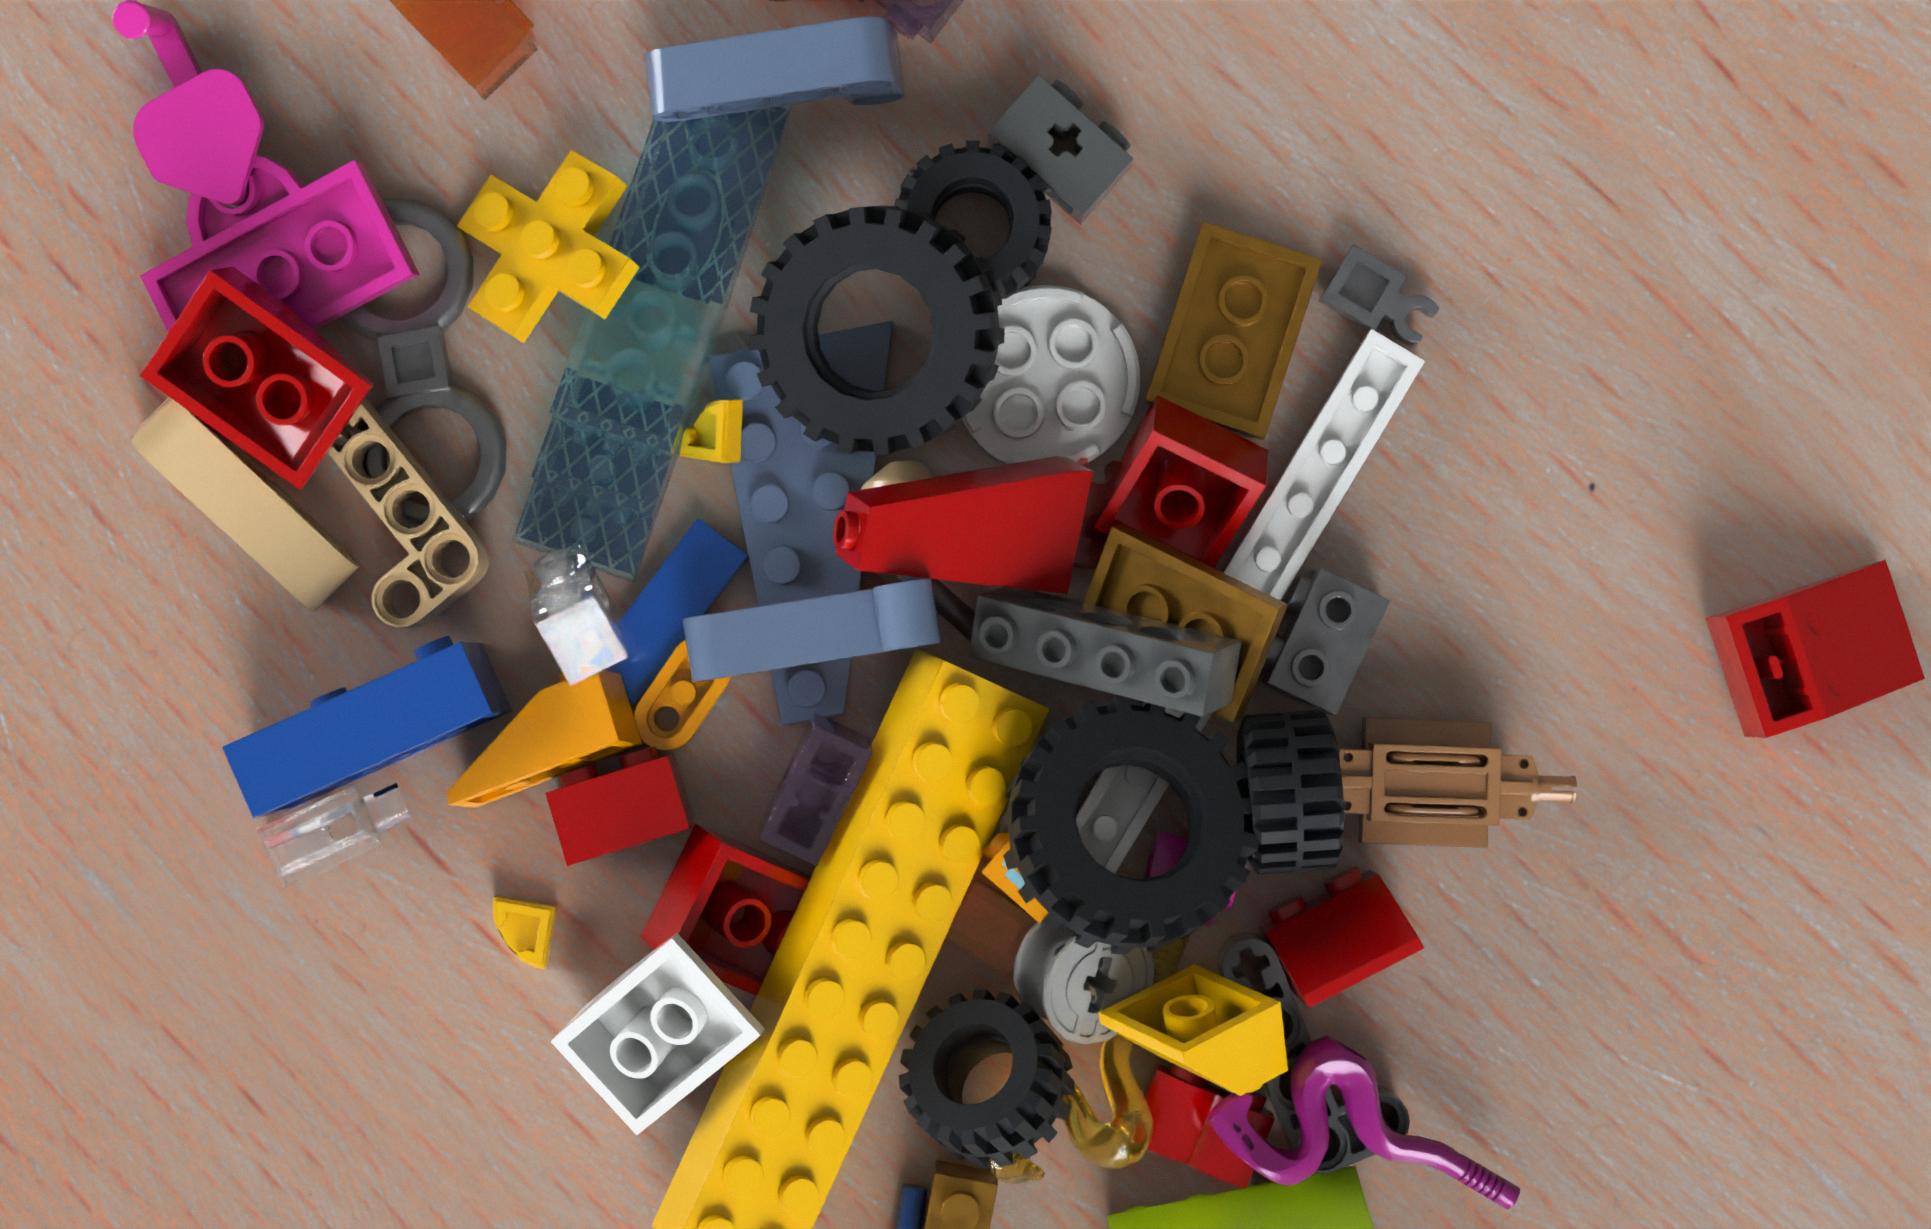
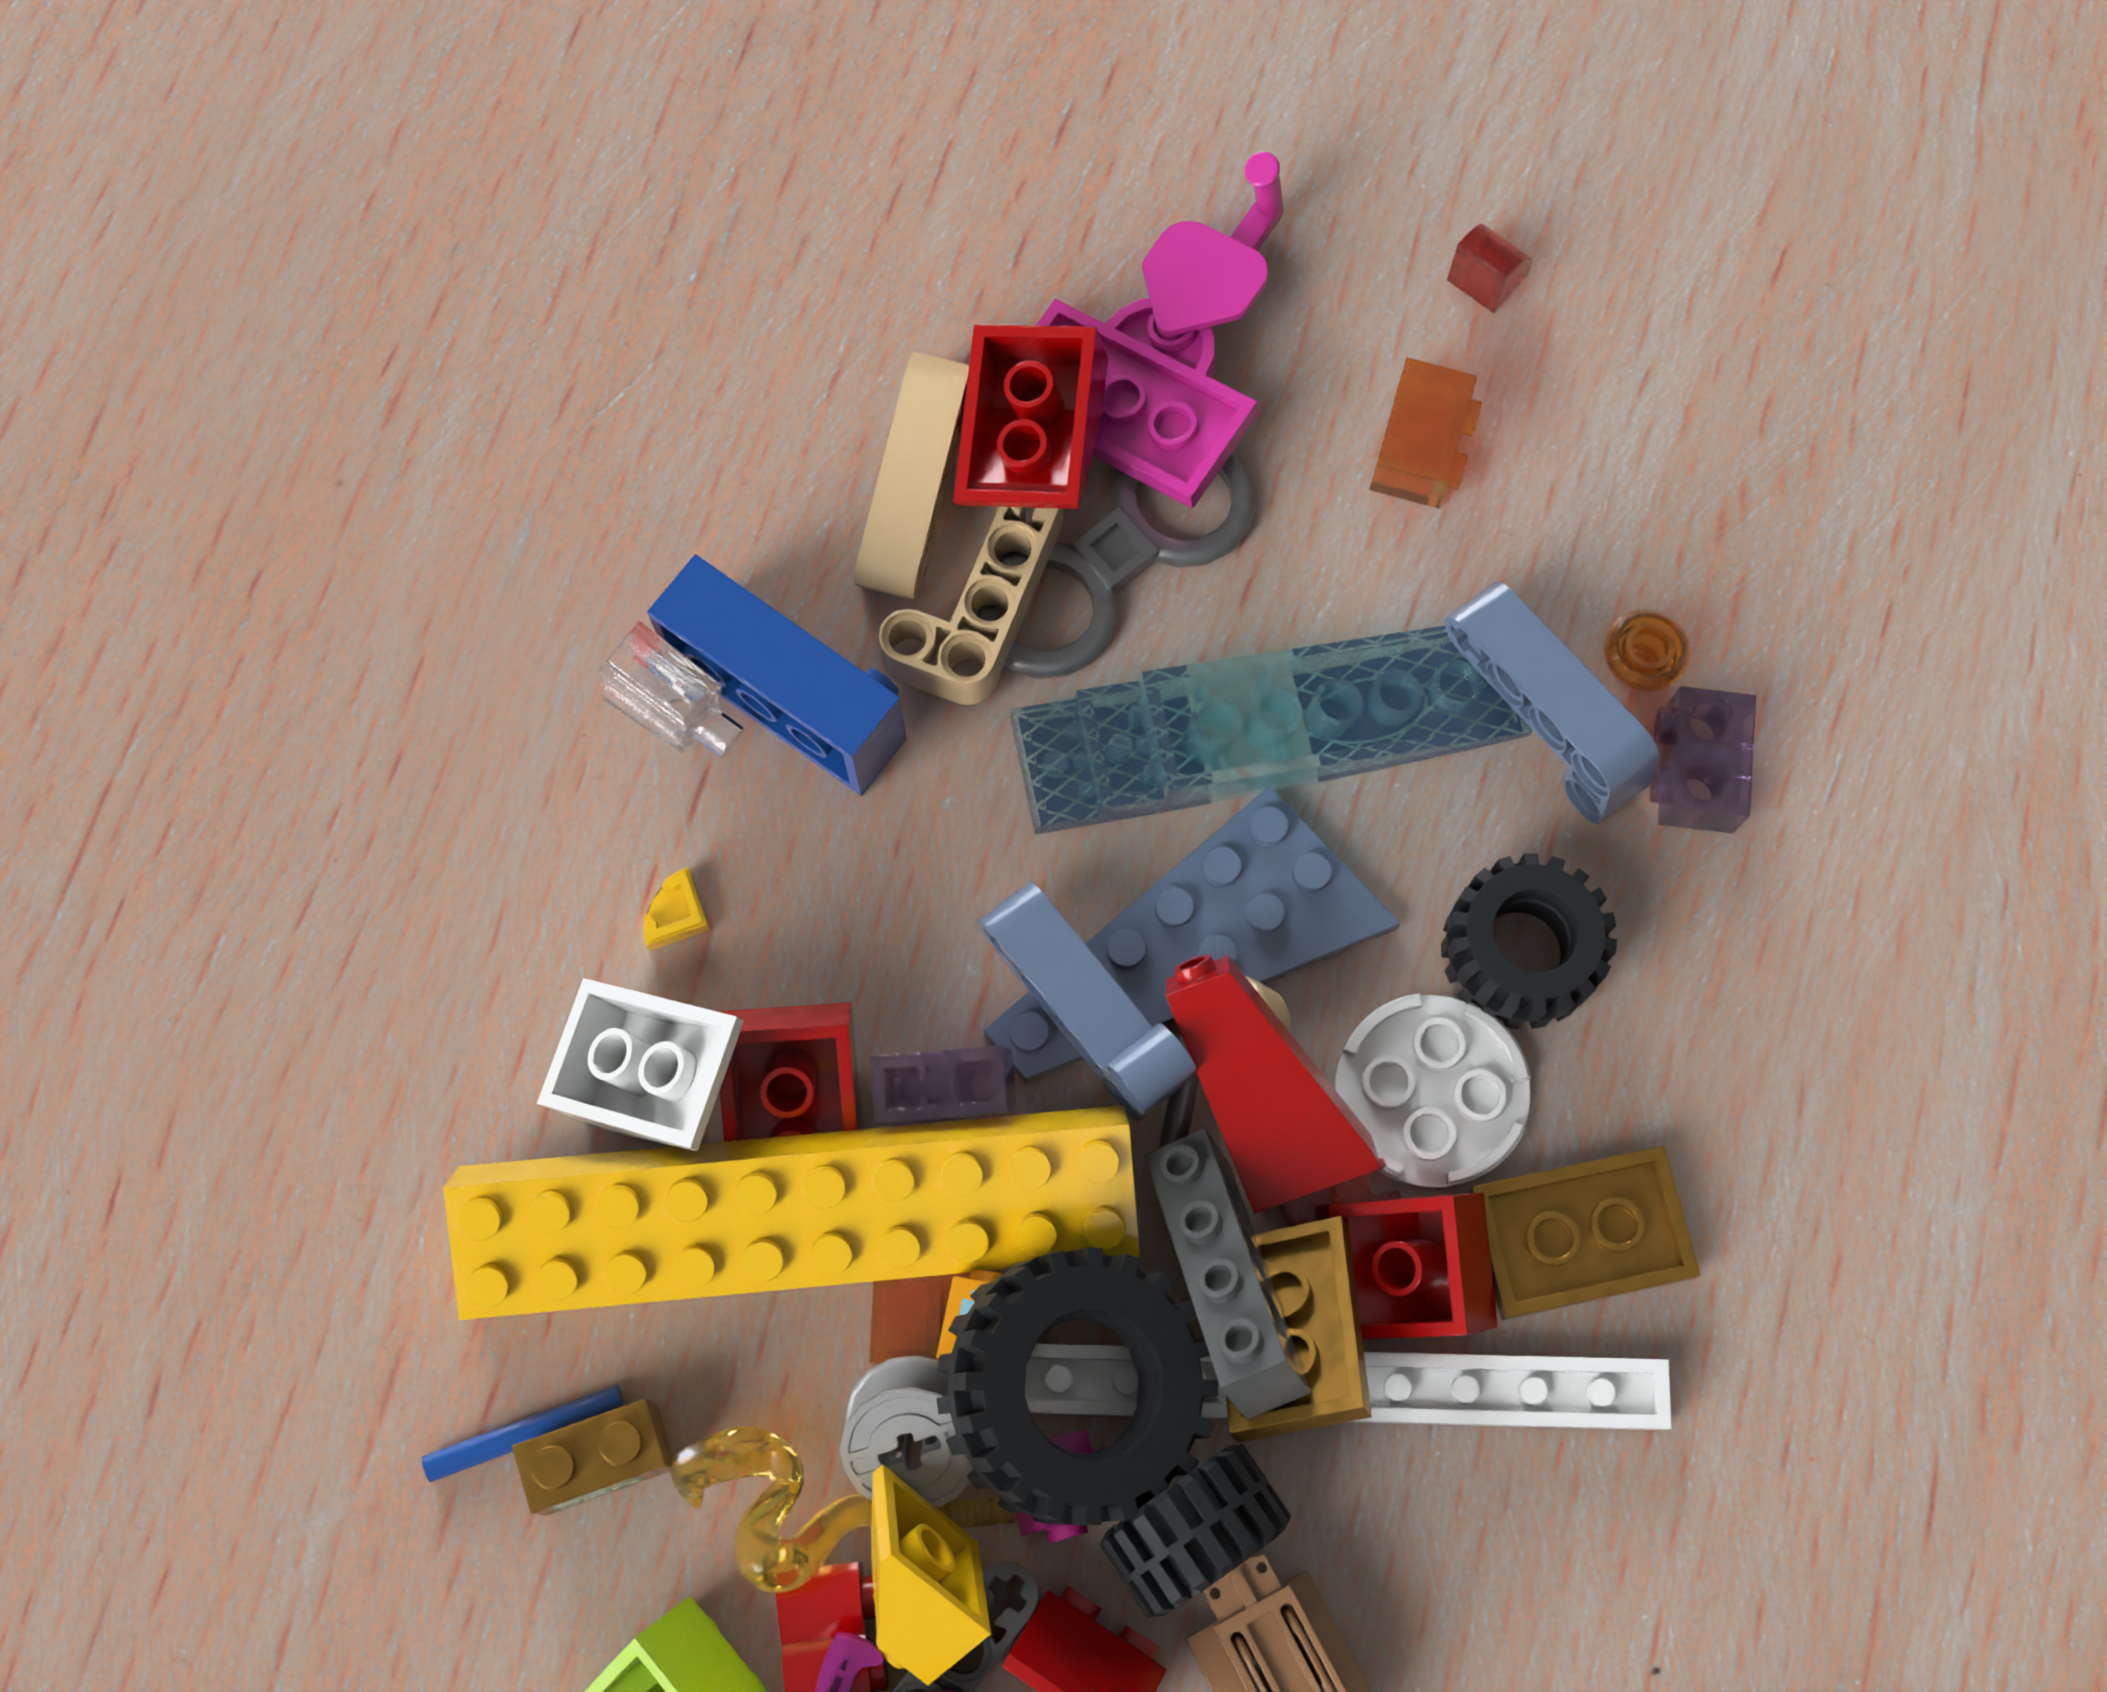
camera: 70 degrees right, 15 degrees down
(548, 246) = (1281, 598): yellow plate -> none
(552, 736) = (857, 832): light orange slope -> none
(574, 614) = (979, 788): clear brick -> none
(620, 807) = (829, 926): red brick -> none
(675, 689) = (961, 937): light orange plate -> none
(679, 590) = (994, 869): blue tile -> none
(715, 433) = (1209, 826): yellow tile -> none
(954, 1046) = (751, 1441): black tyre -> none
(961, 318) = (1410, 981): black tyre -> none
(1070, 181) = (1622, 1010): dark grey brick -> none
(1323, 640) = (1354, 1485): flat silver brick -> none
(1368, 291) = (1701, 1338): flat silver plate -> none

